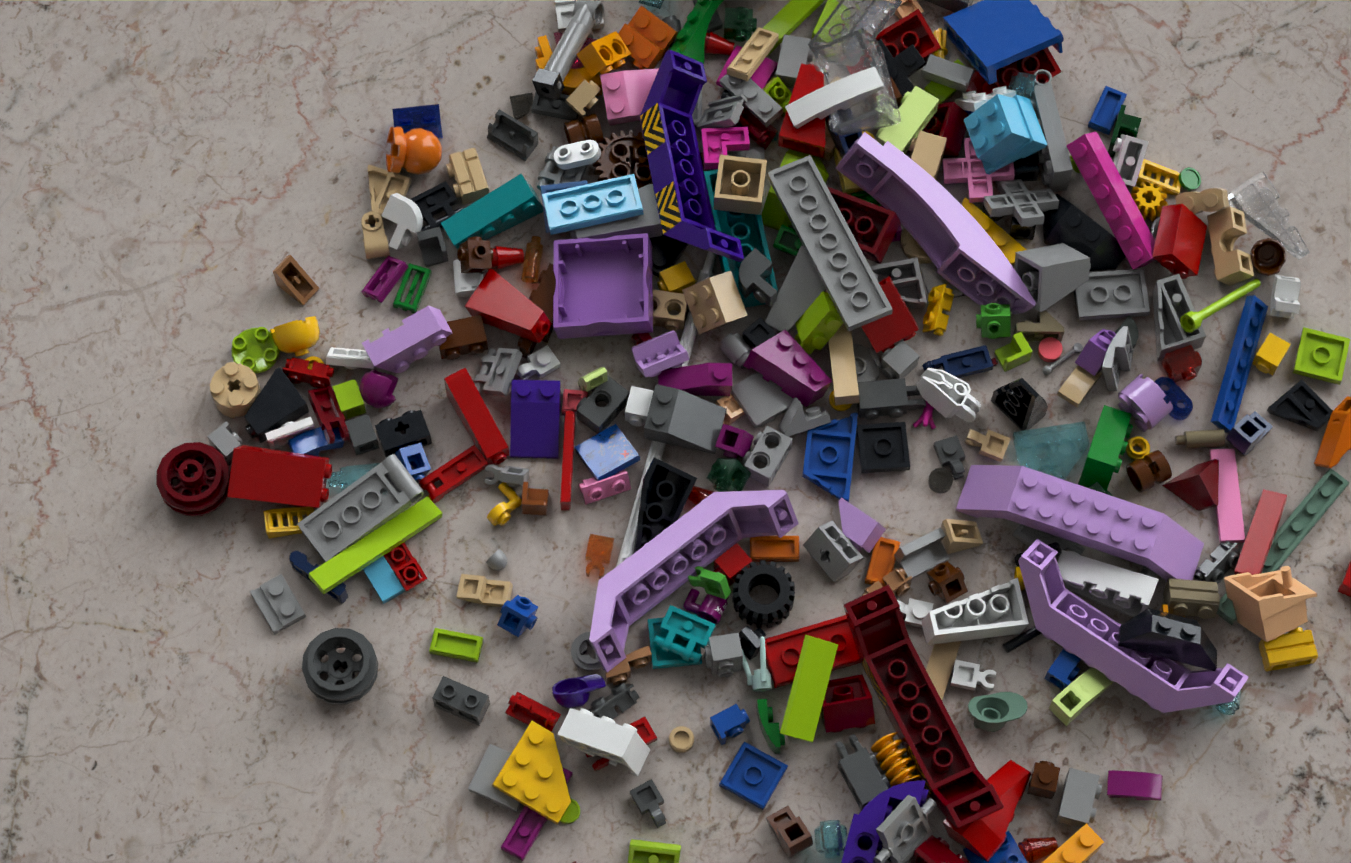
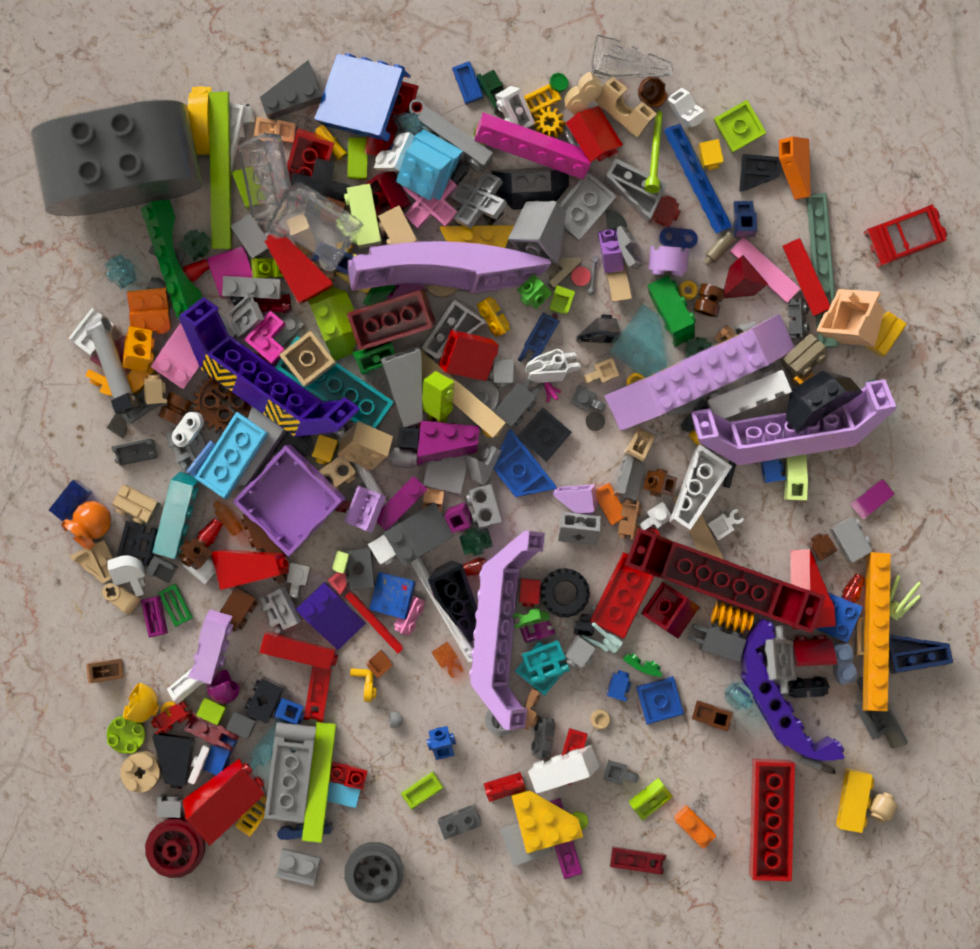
camera: 45 degrees left, 20 degrees up
(484, 591) = (405, 744): tan slope -> none
(511, 475) = (351, 663): light grey plate -> none
(576, 691) = (516, 750): dark purple cap -> none
(752, 54) = (225, 259): tan tile -> none
(752, 277) = (371, 409): dark grey brick -> none
(774, 548) = (542, 559): orange tile -> none
(809, 688) = (649, 628): lime slope -> none
(829, 243) = (399, 347): light grey plate -> none
(836, 95) = (309, 247): white slope -> none
(947, 73) = (354, 156): light grey panel -> none
(995, 710) = (759, 531): sand green piece -> none

